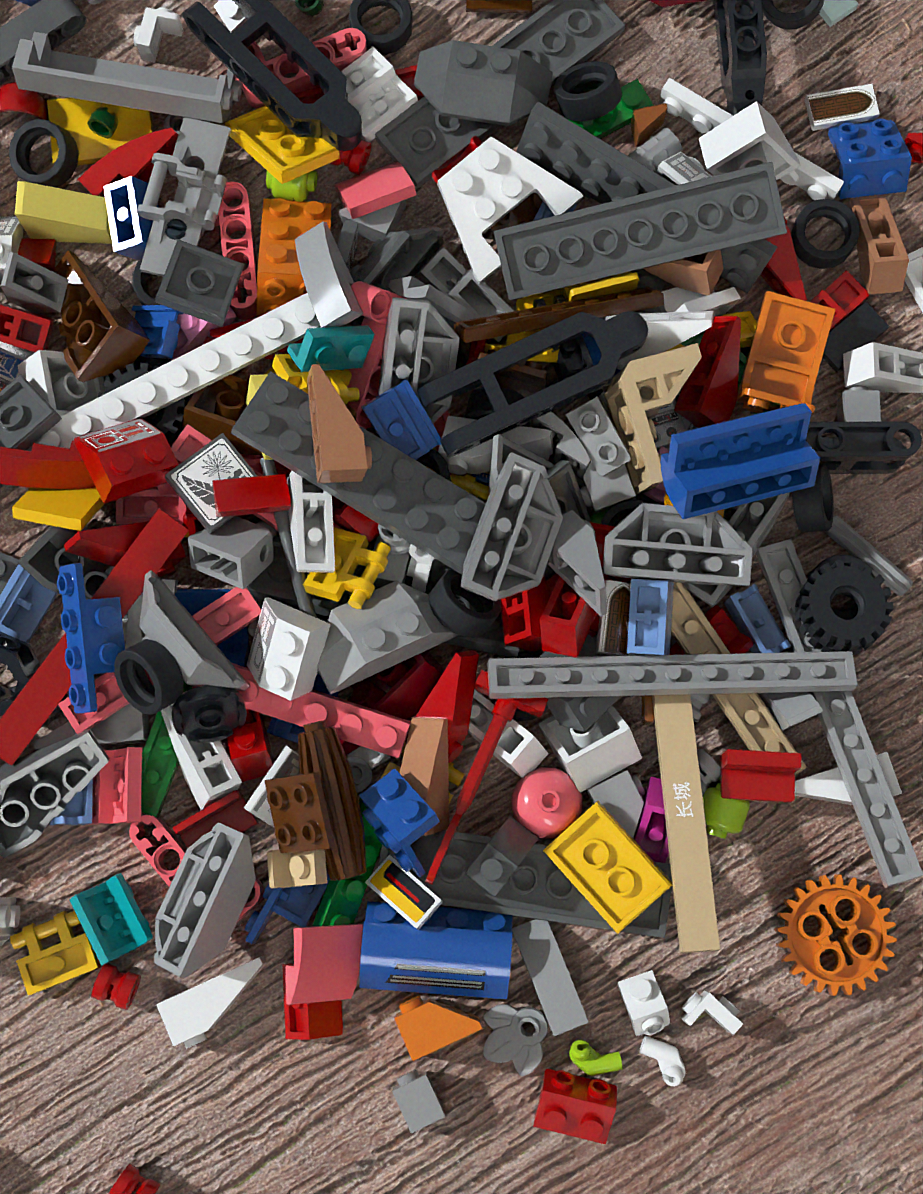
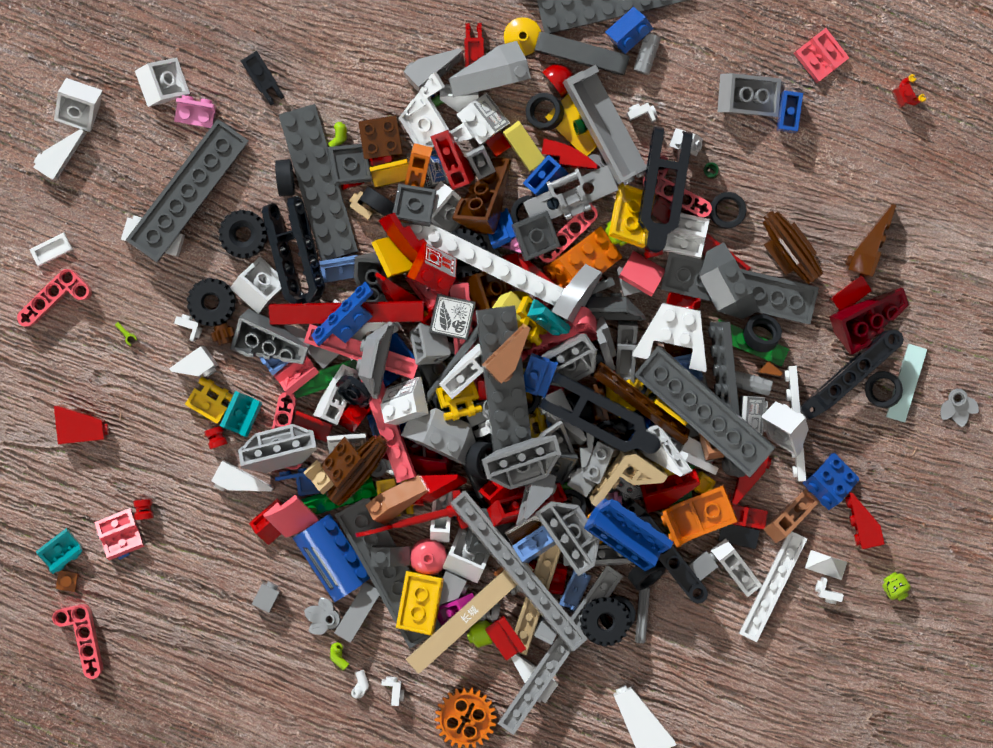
camera: 50 degrees right, 10 degrees up
(162, 670) = (341, 354): black tyre -> none
(251, 495) = (457, 336): red slope -> none
(398, 817) = (371, 503): blue bracket -> none
(404, 892) = (344, 526): slope -> none
(432, 1025) = (300, 580): orange slope -> none
(576, 1106) = (313, 662): red bracket -> none
(644, 1003) = (376, 660): white bracket -> none
(840, 214) = (792, 488): black tyre -> none
(842, 106) = (848, 451): tile -> none

